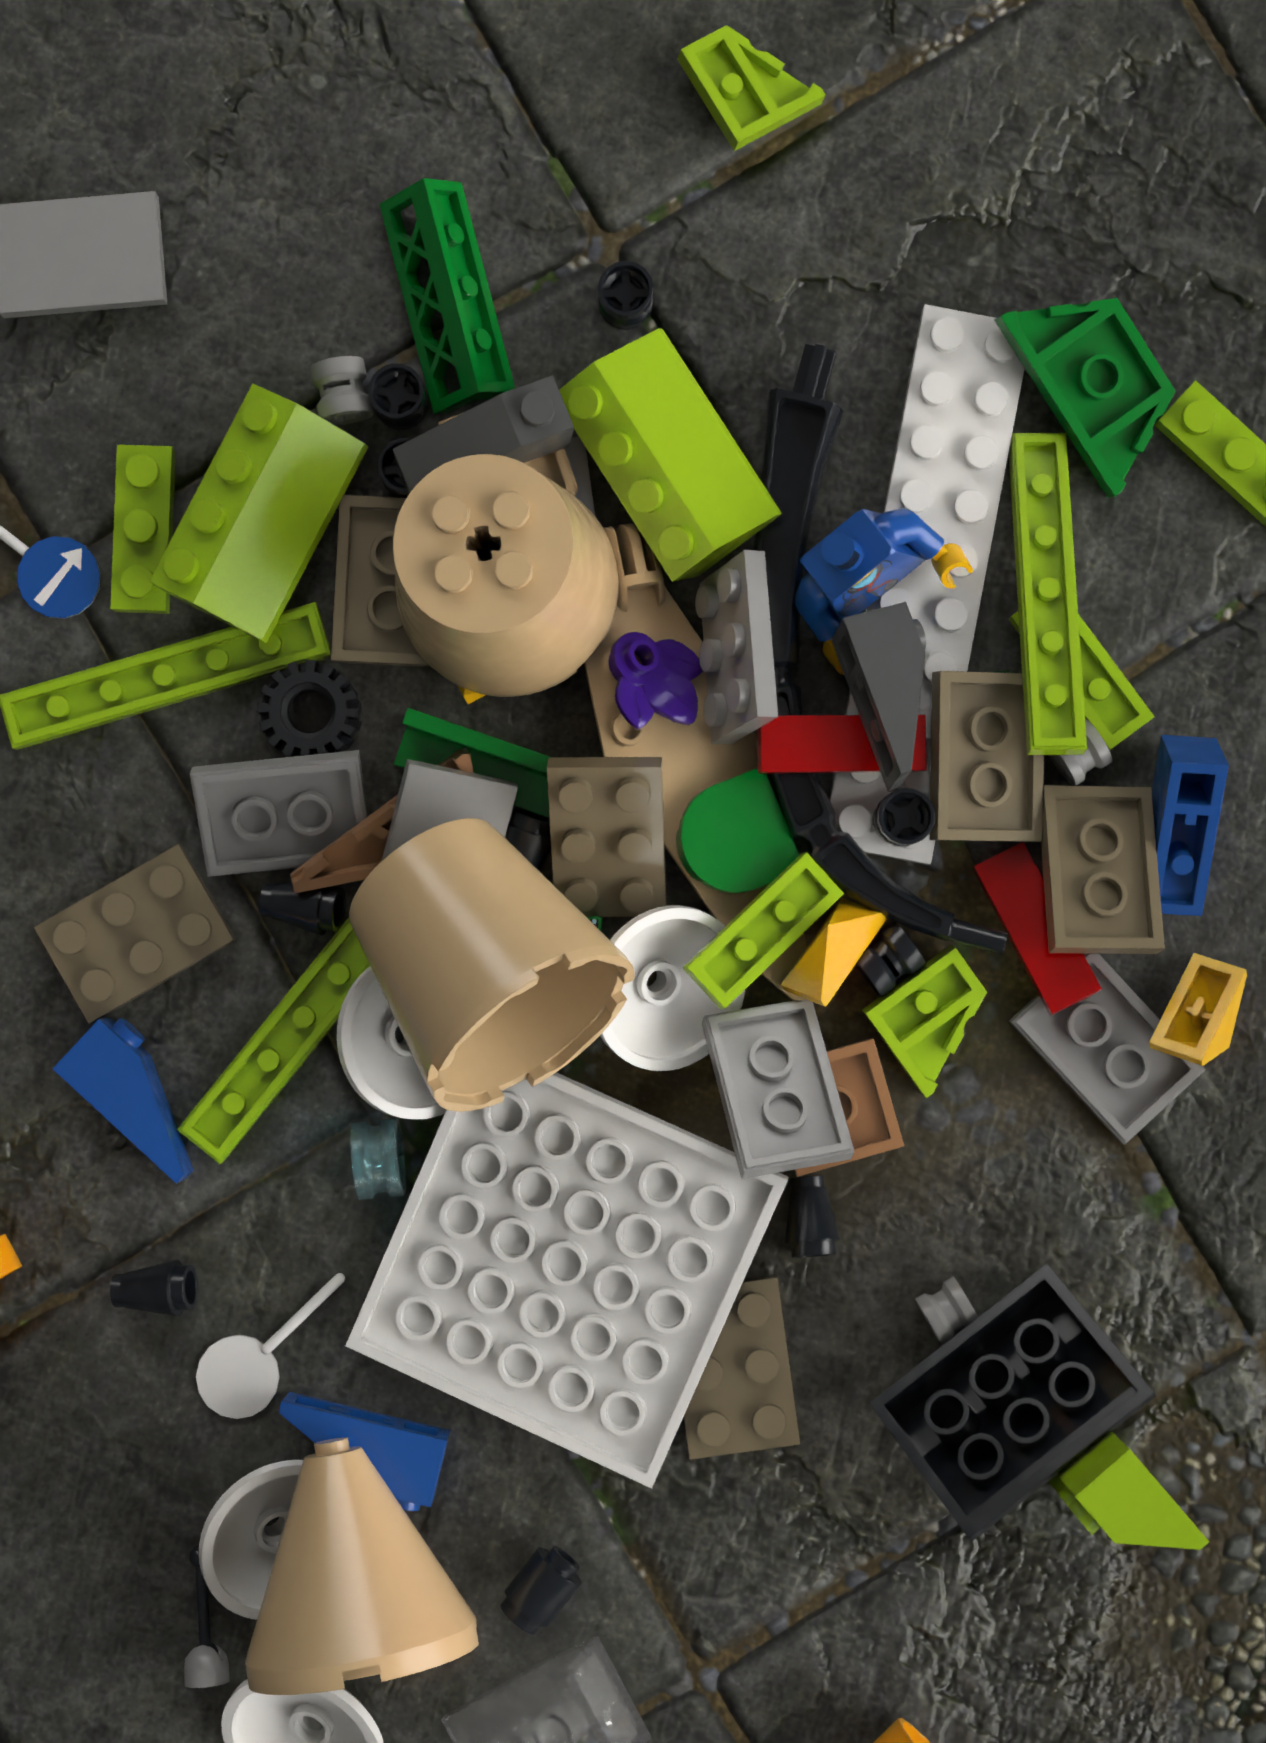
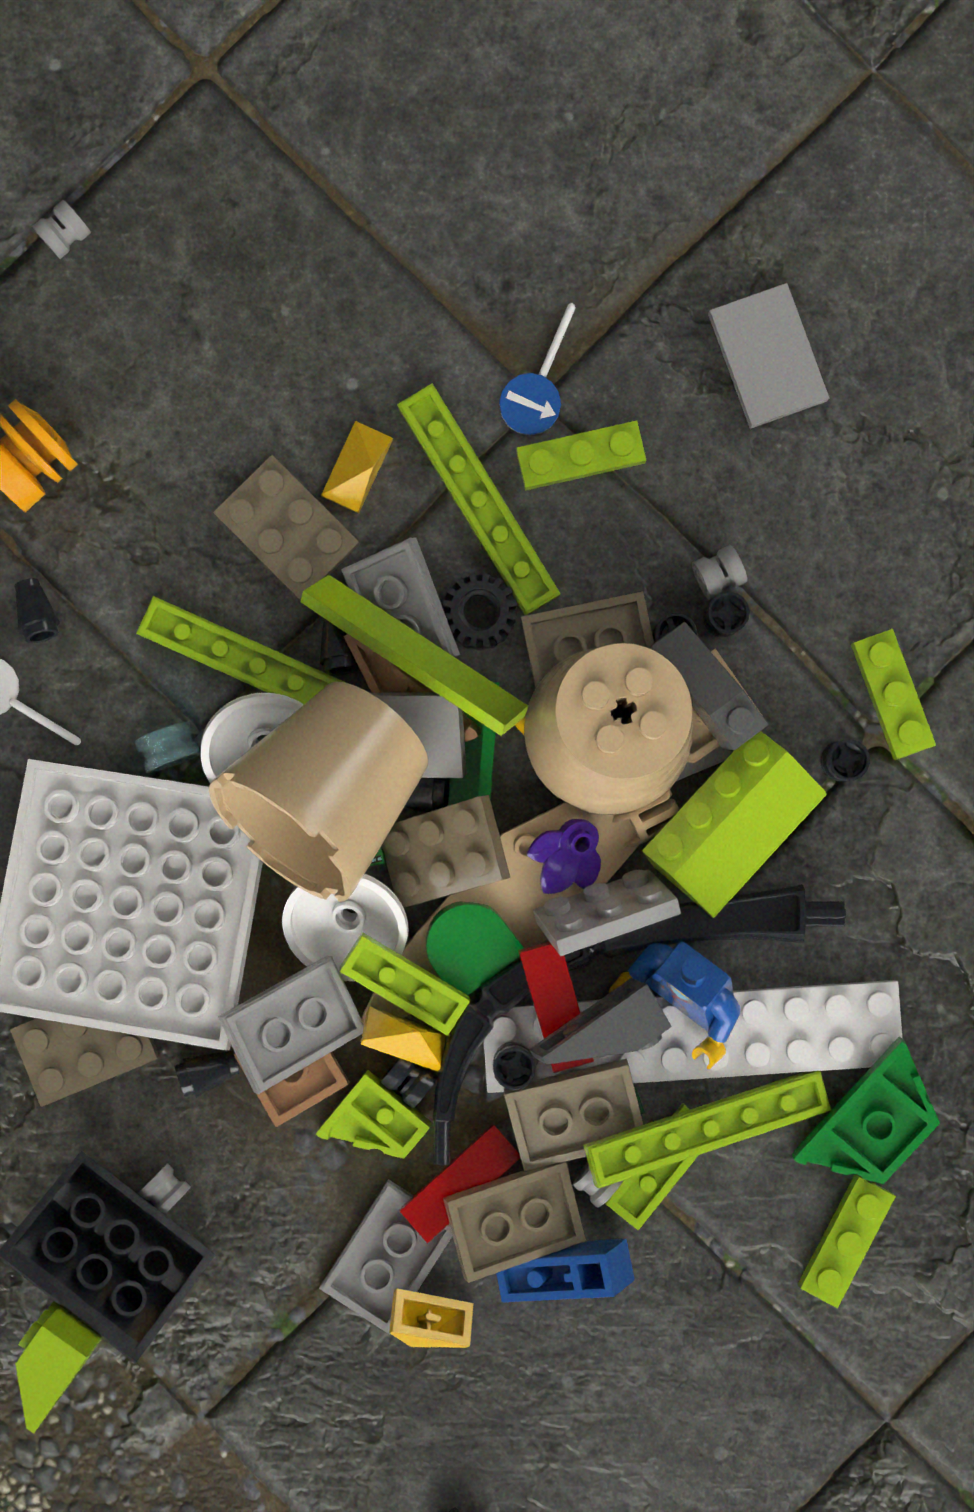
camera: 75 degrees right, 0 degrees up
(80, 822) = (357, 467): none -> yellow slope
(124, 1086) = (173, 550): blue slope -> none
(259, 513) = (613, 537): lime slope -> none
(342, 806) = (415, 654): none -> lime tile
(454, 288) = (815, 635): green fence -> none
(557, 212) = (893, 694): none -> lime plate

